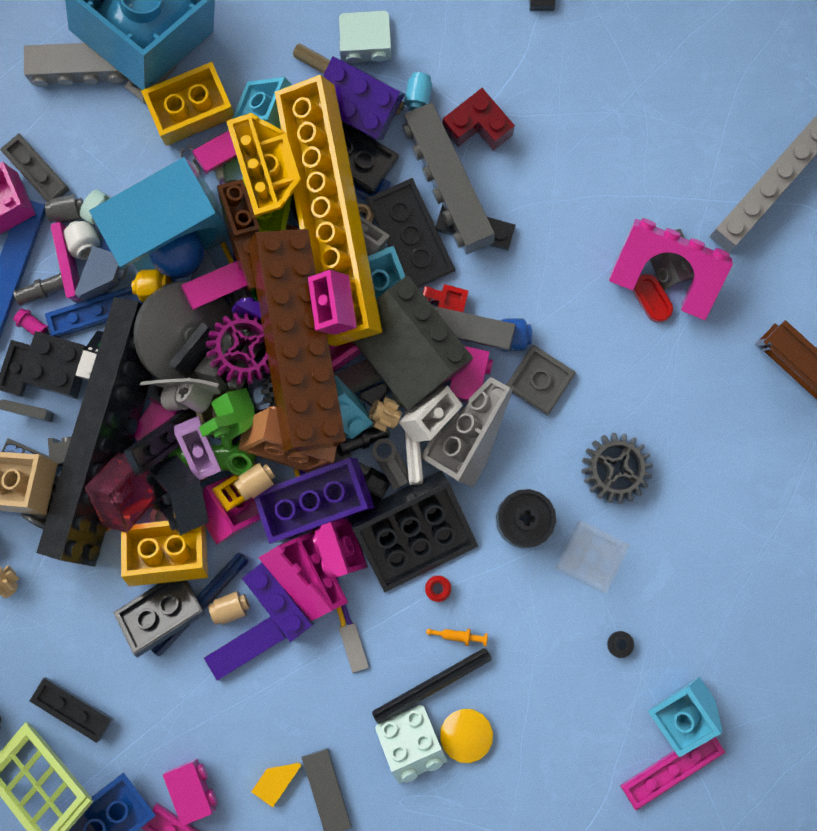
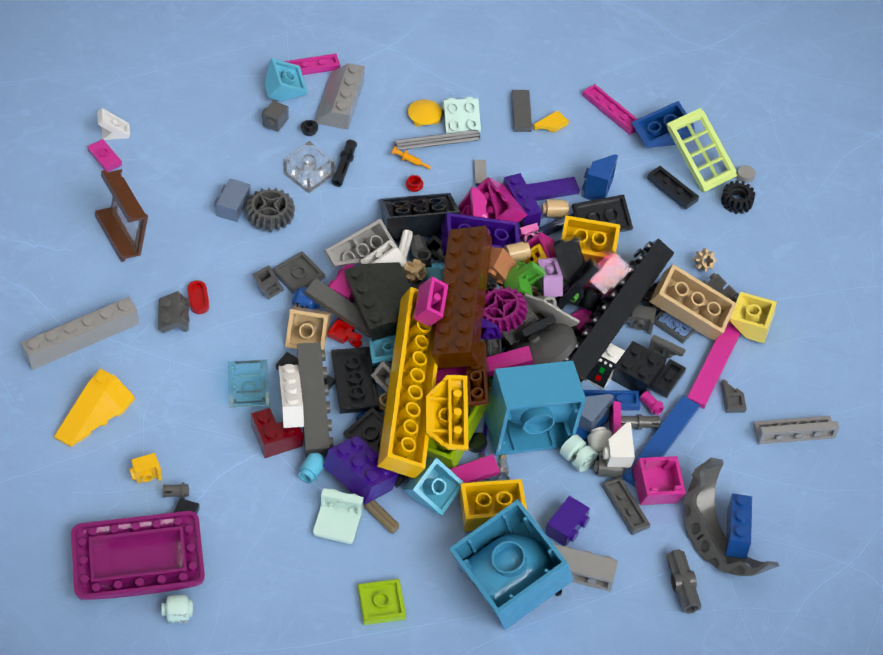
camera: 170 degrees left, 30 degrees down
(49, 217) = (620, 448): none -> white slope
(97, 117) = (567, 521): none -> dark purple brick
(173, 675) = (599, 178): none -> blue slope
(190, 791) = (607, 129): dark pink brick -> none
(254, 550) = (528, 231): none -> dark pink tile
(475, 157) = (291, 396): none -> white arch
(495, 289) = (307, 327): none -> tan slope
(537, 180) = (248, 383): none -> clear light blue container
(540, 513) = (343, 197): black wheel -> none
(547, 592) = (346, 157): none -> black pin
(563, 15) = (177, 490): none -> dark grey pin
(573, 344) = (268, 282): none -> dark grey brick
(597, 720) = (341, 96): none -> light grey slope
(608, 27) = (145, 468): none -> yellow brick
(647, 240) = (161, 288): dark pink arch -> none
(673, 467) = (232, 200): none -> sand blue brick
(676, 643) = (275, 116): none -> dark grey brick
(703, 97) = (98, 403): none -> yellow wedge

